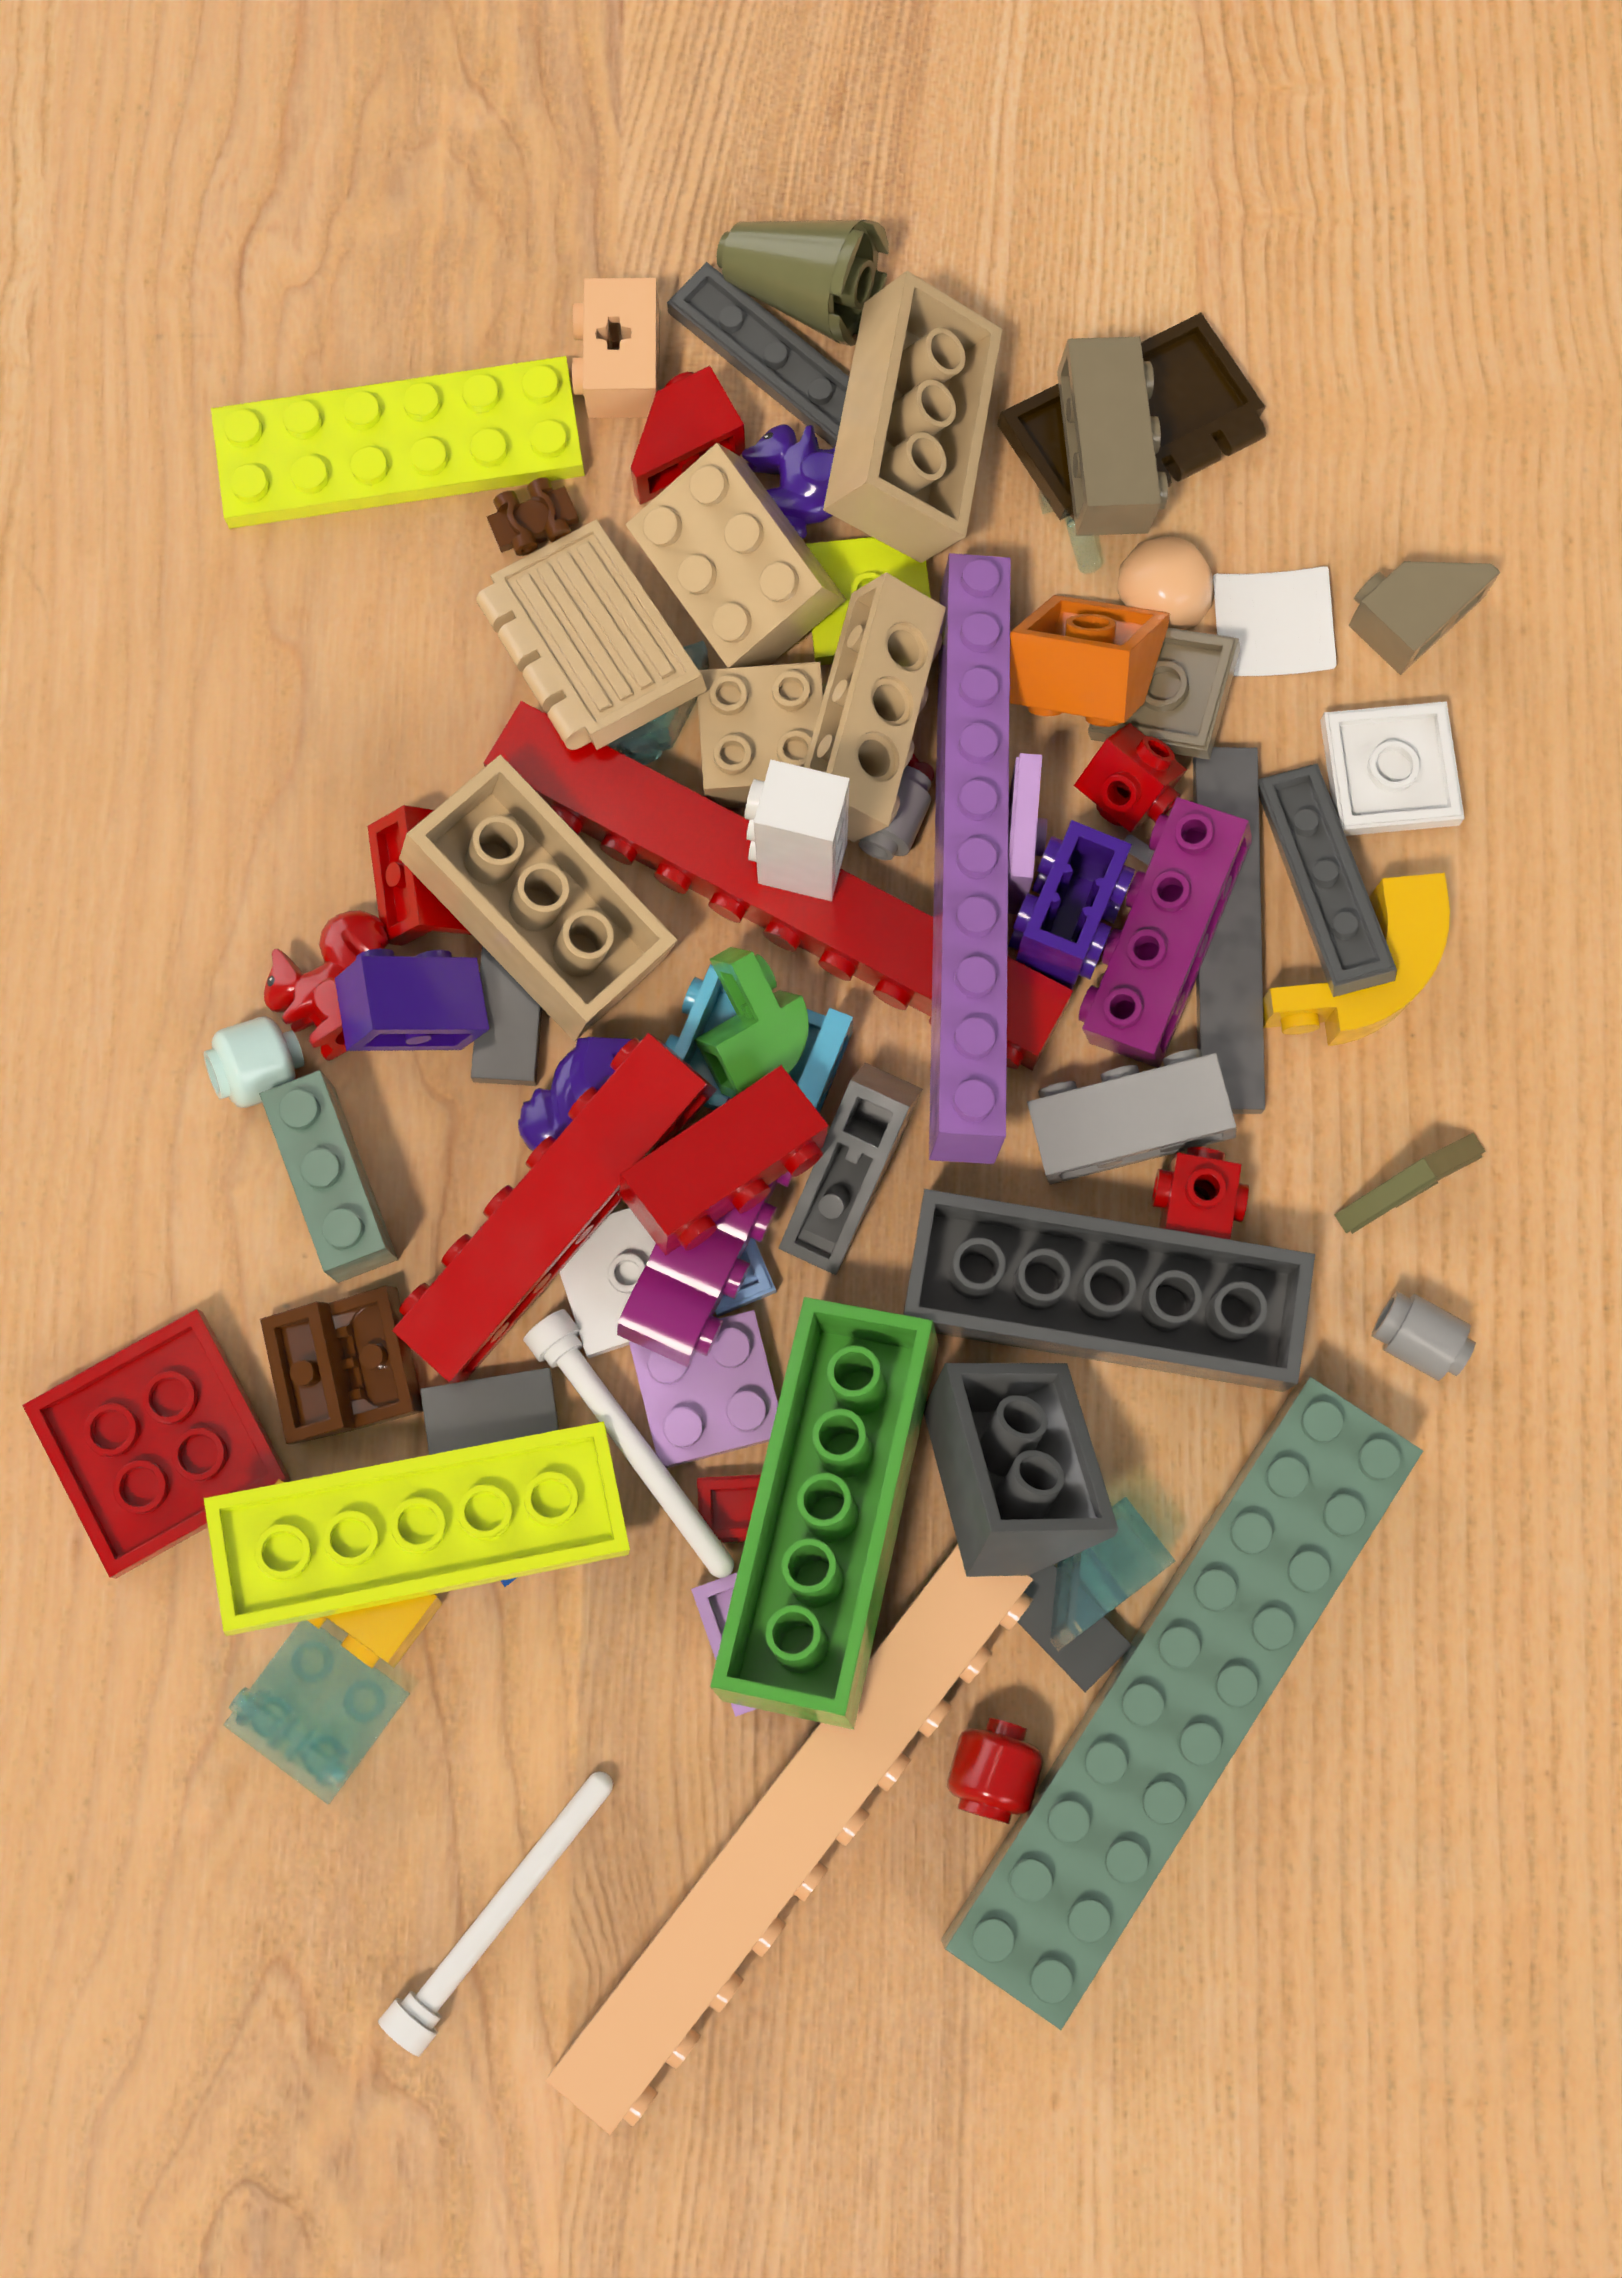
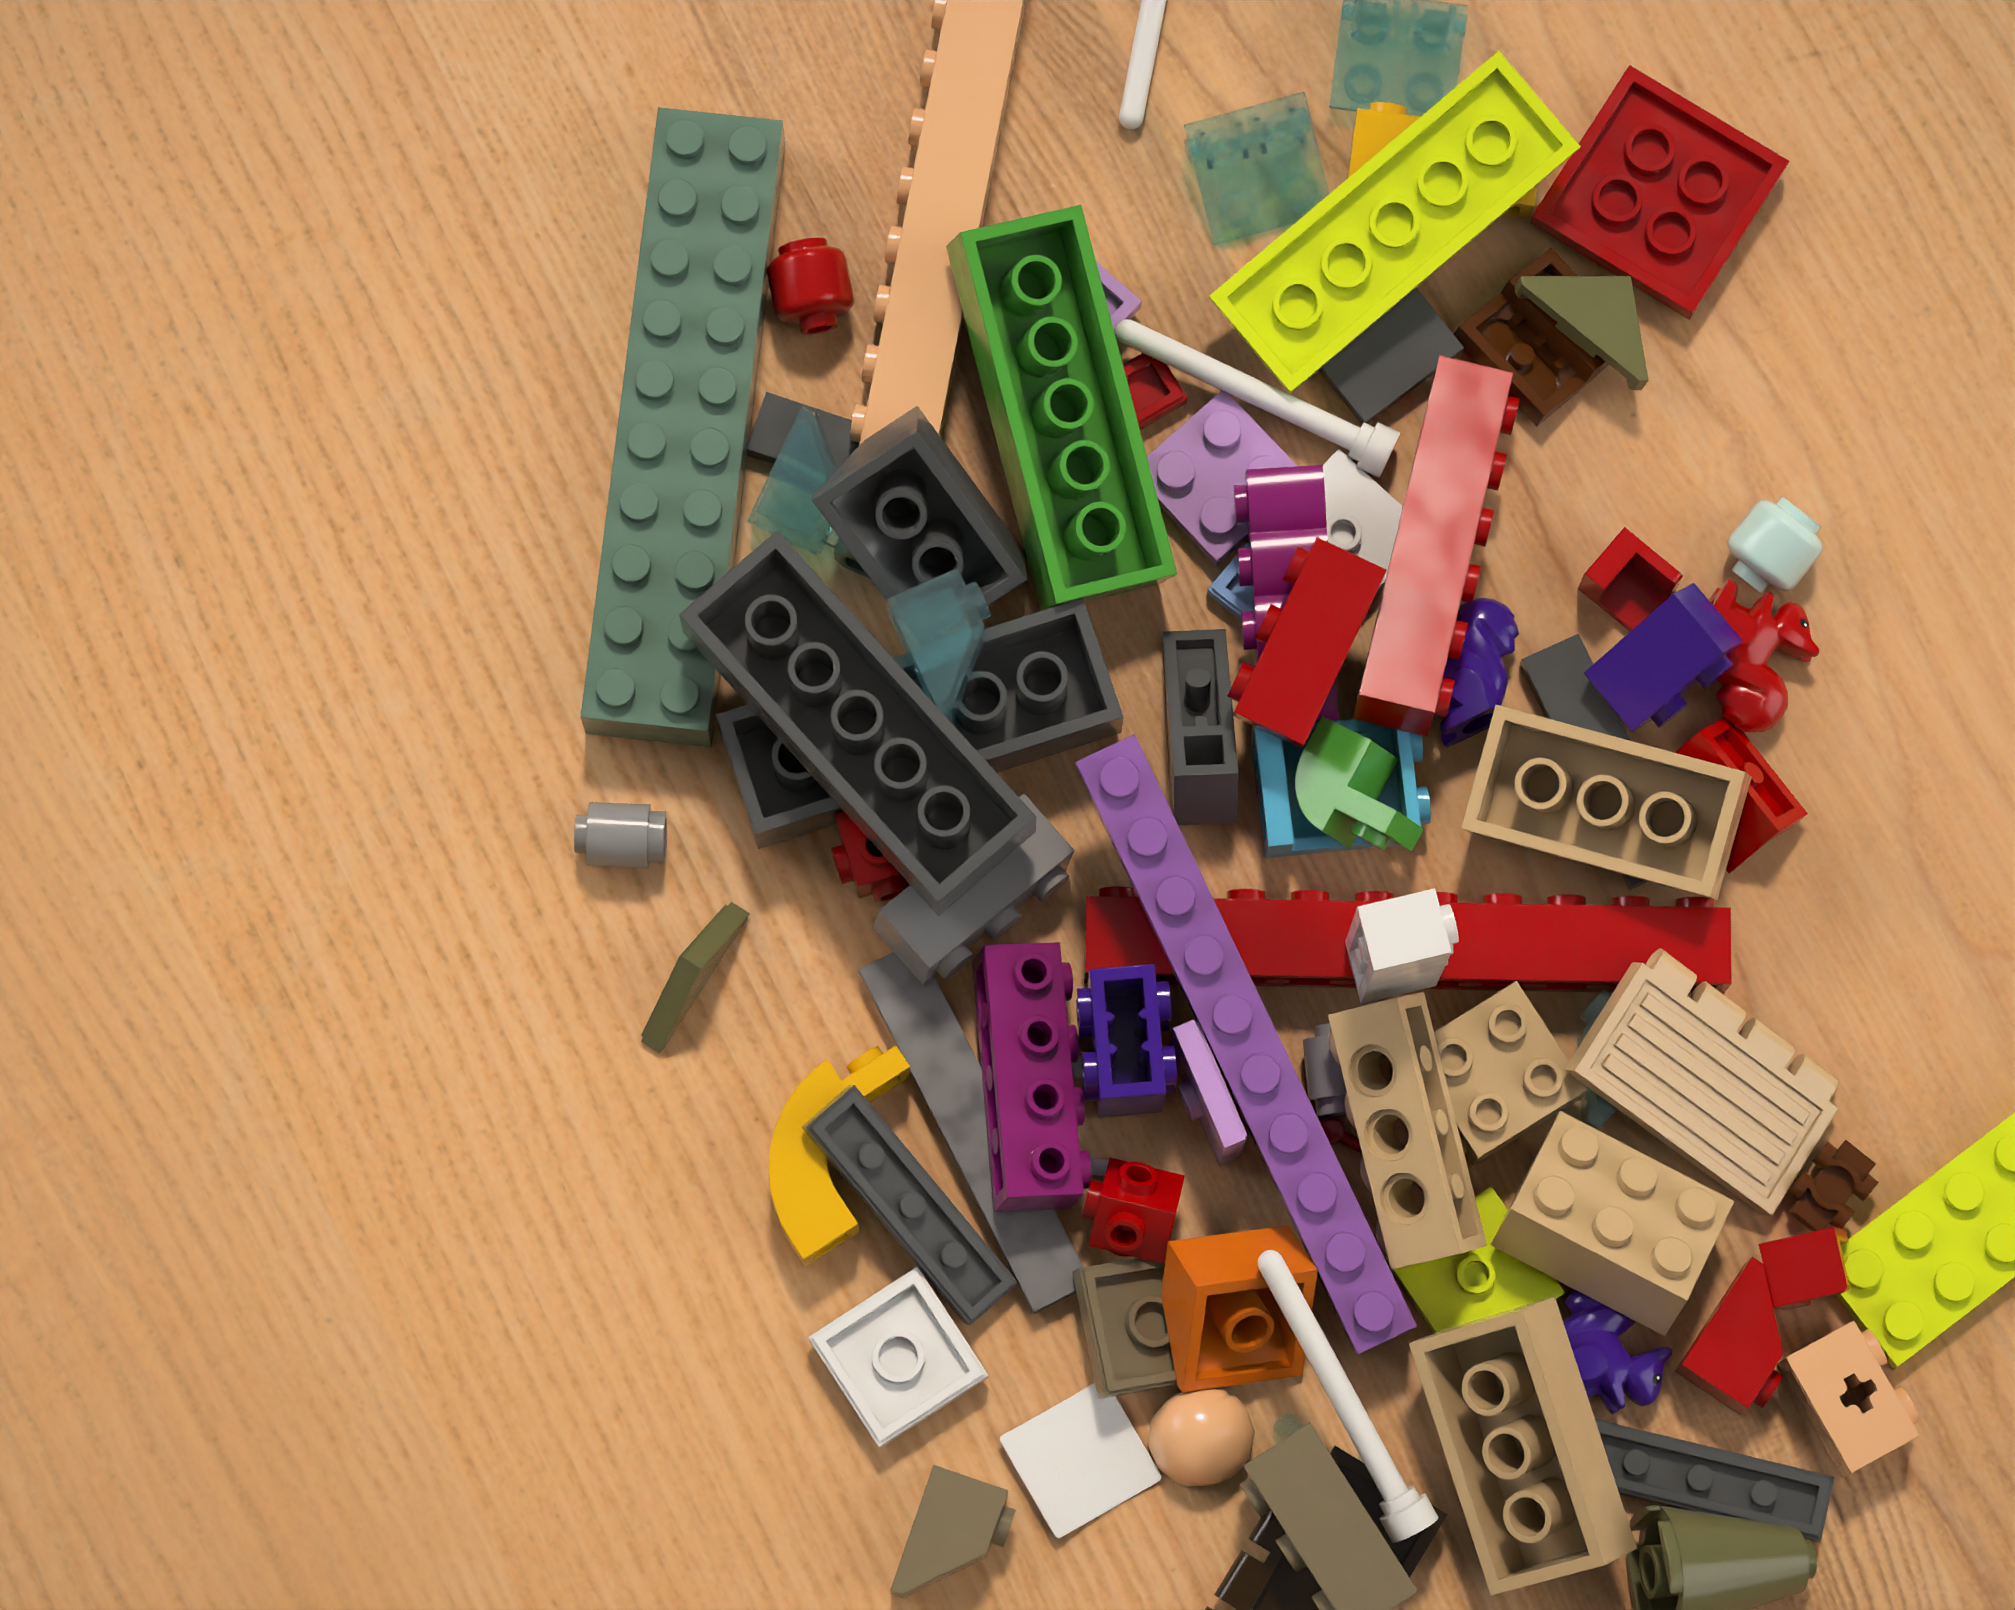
camera: 150 degrees right, 0 degrees up
(285, 1348) = (1596, 316): none -> olive tile
(328, 1177) = (1647, 479): sand green brick -> none
(399, 1101) = (1629, 580): none -> red panel
(509, 1664) = (1257, 167): none -> clear light blue hinge
(594, 455) = (1805, 1267): none -> red panel
(1038, 420) = (1402, 1506): none -> white piece
(1060, 1335) = (941, 635): none -> clear light blue slope
(1183, 1290) = (858, 723): none -> dark grey brick

